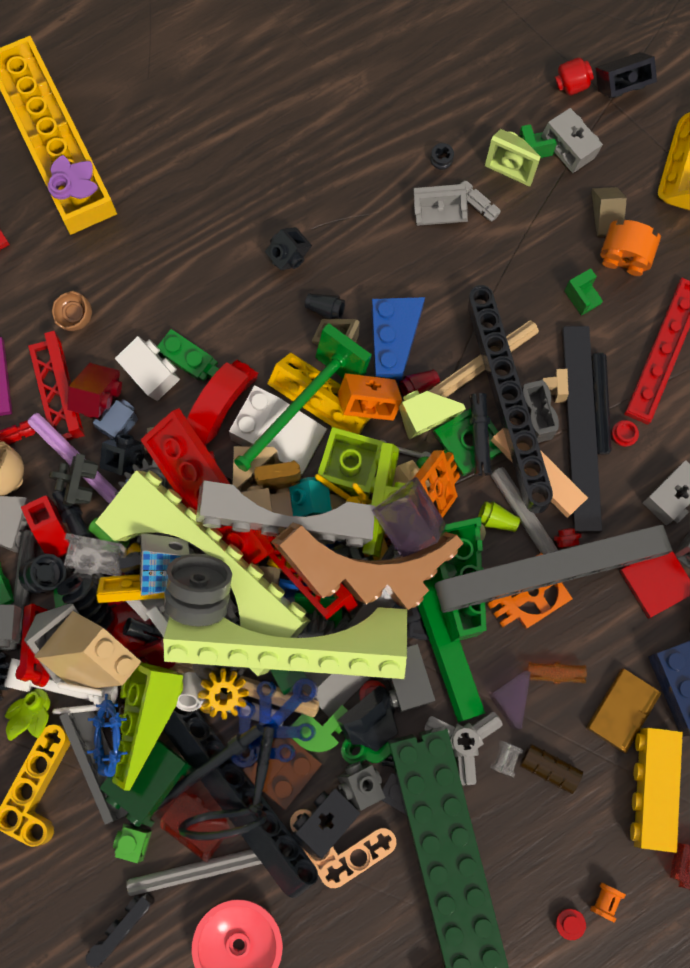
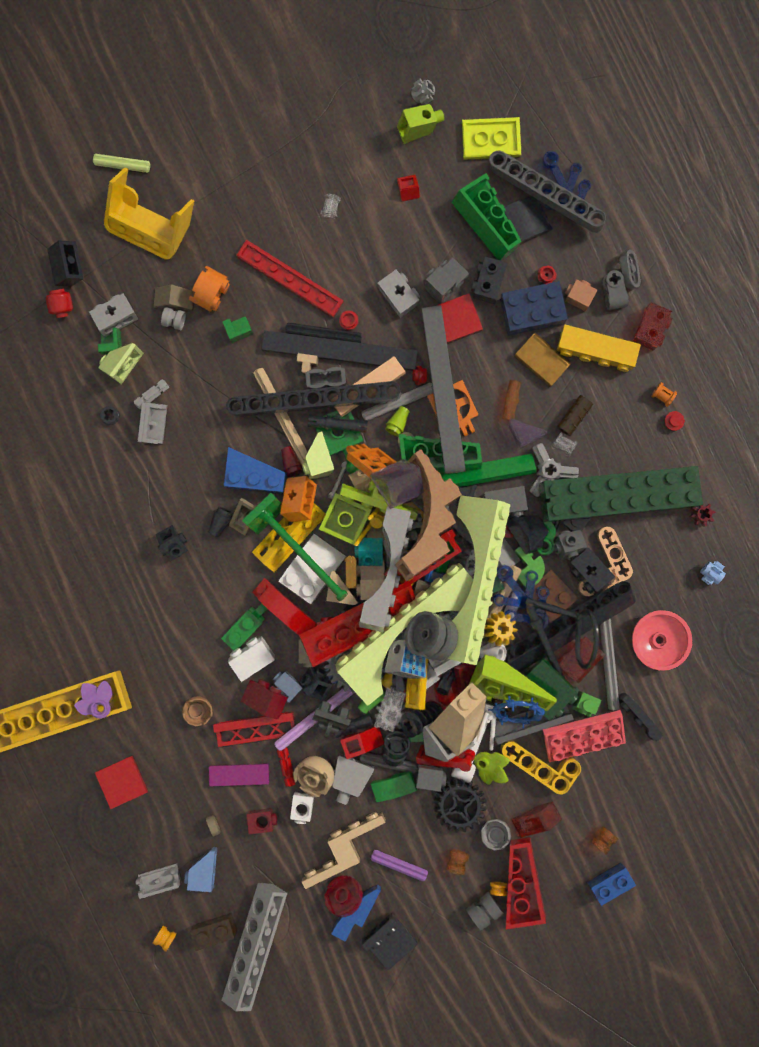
camera: 75 degrees left, 10 degrees up
(83, 846) = (584, 736): none -> coral tile
(582, 208) = (173, 318): none -> light grey wheel

